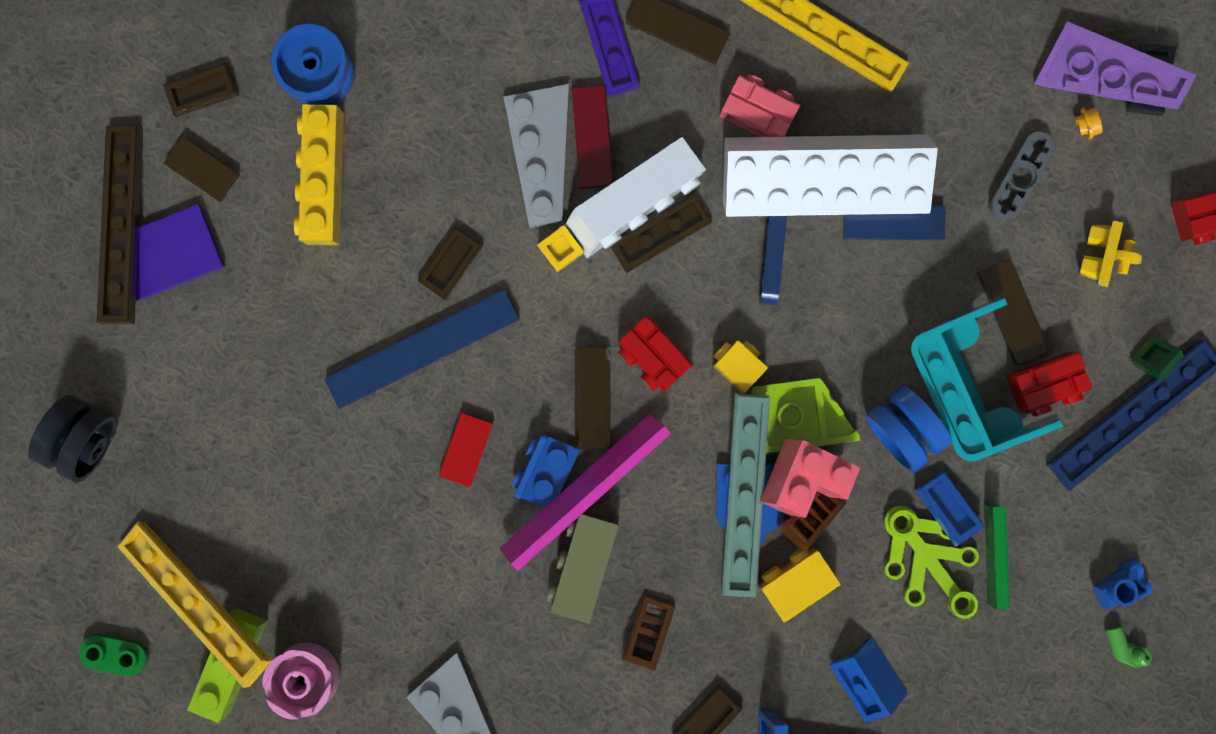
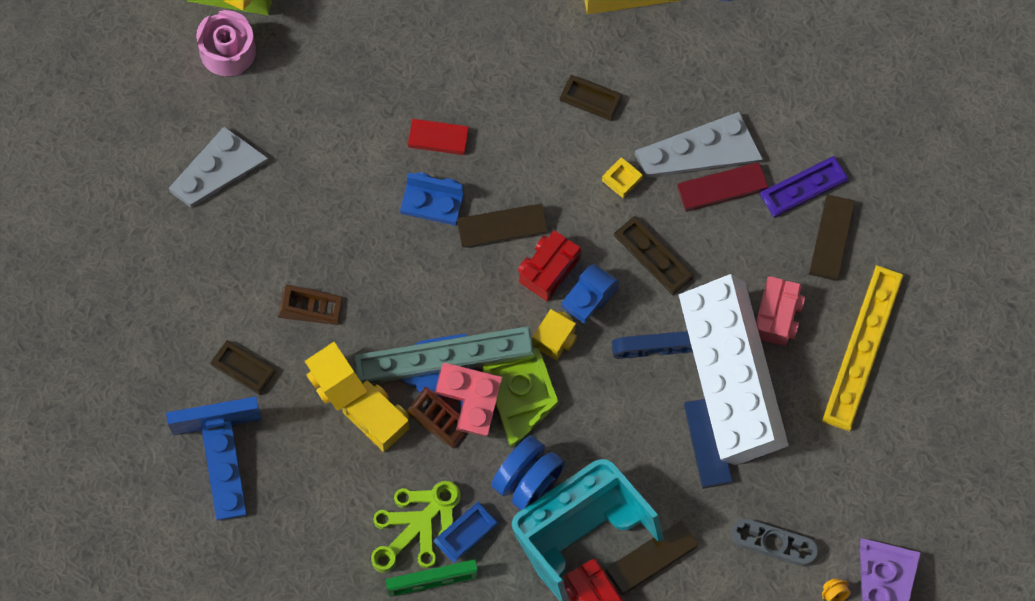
camera: 75 degrees right, 20 degrees down
(421, 349) = (515, 89): dark blue tile -> none
(583, 567) = (358, 241): olive brick -> none
(584, 491) = (422, 228): dark pink tile -> none
(634, 196) = (679, 223): white wedge -> none
(701, 313) = (590, 293): none -> blue brick
(751, 624) = (334, 377): none -> yellow brick
(869, 681) = (302, 493): blue panel -> none

